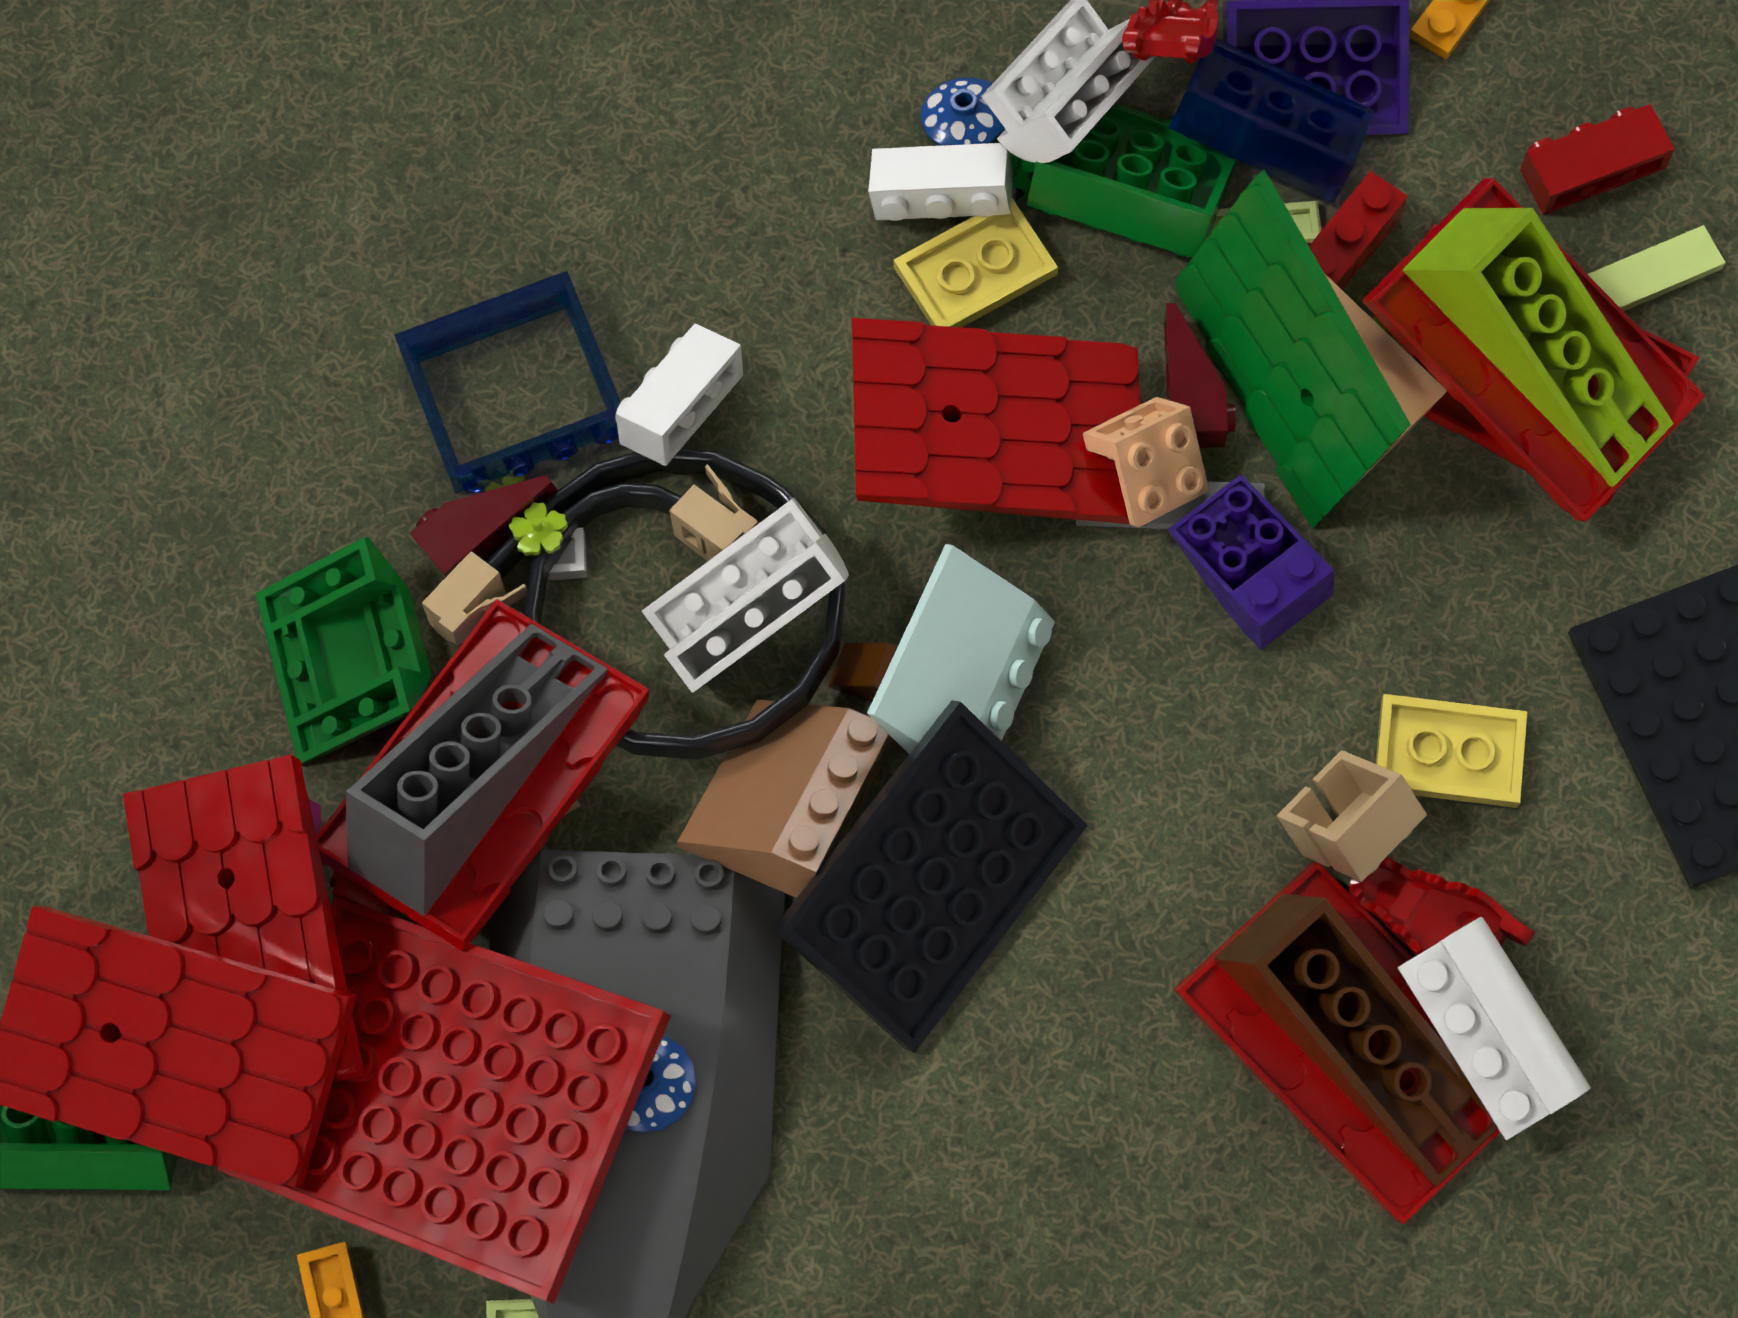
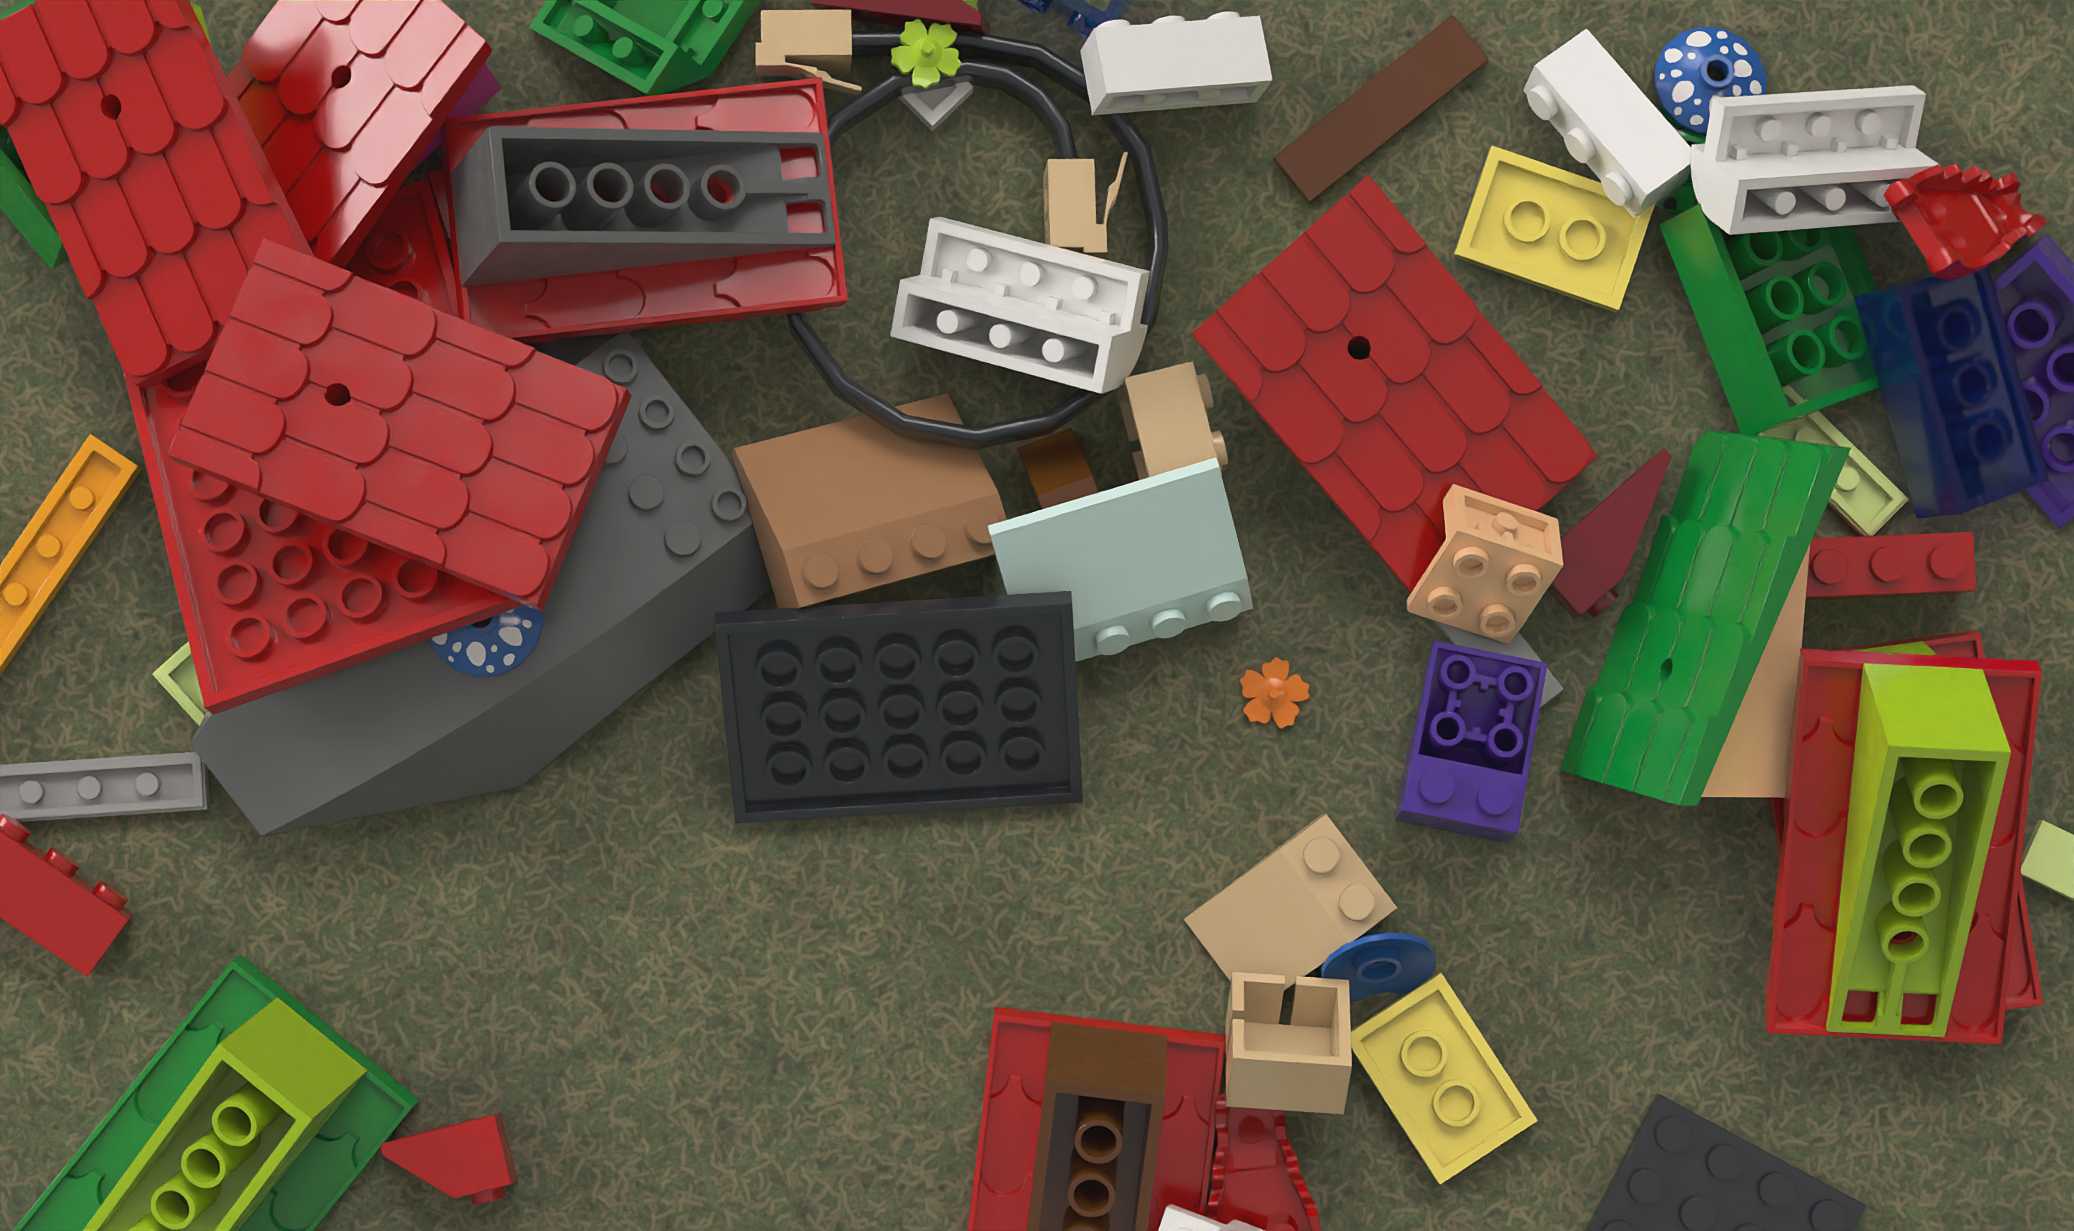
camera: 45 degrees right, 15 degrees up
(479, 1009) = (401, 424): none -> red piece
(813, 309) = (1380, 109): none -> reddish brown tile
(890, 563) = (1170, 420): none -> tan piece
(1118, 658) = (1273, 693): none -> orange plant
(1264, 748) = (1292, 907): none -> tan slope
(1348, 720) = (1381, 964): none -> blue dish

